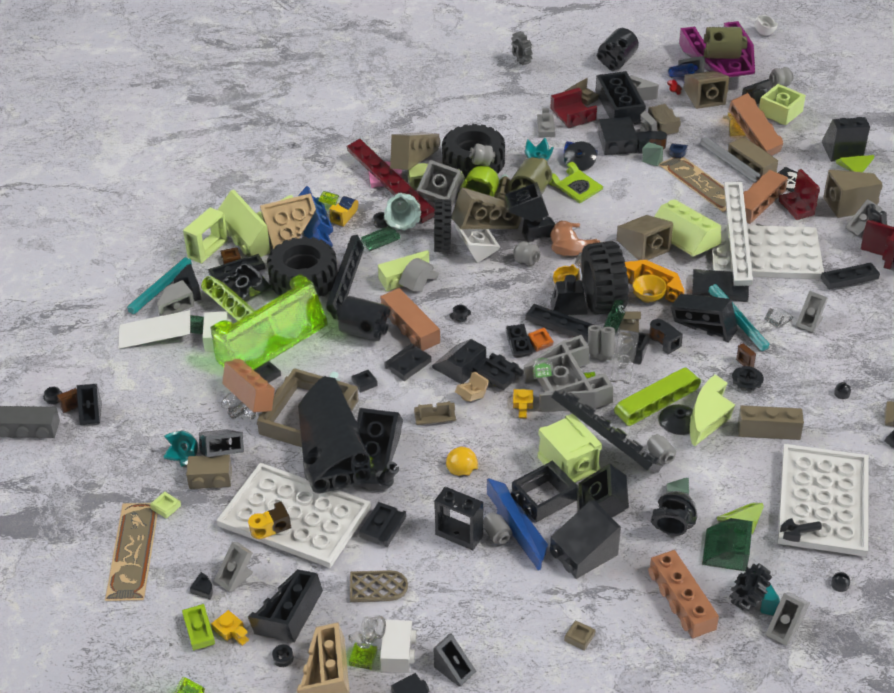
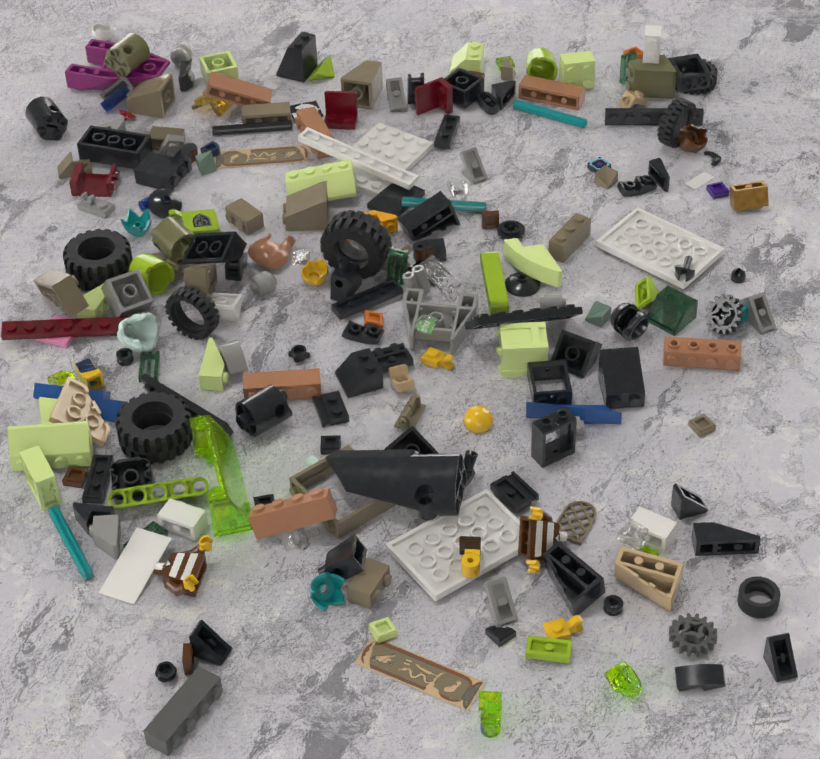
camera: 60 degrees left, 0 degrees up
(101, 615) = (490, 719): none -> clear neon green leg
(159, 357) = (185, 569): none -> torso
(322, 556) = (536, 536): none -> torso
(482, 155) = (130, 247): light grey piece -> none
(603, 205) = (244, 216): none -> dark tan brick
(845, 390) = (560, 191): black hinge -> none

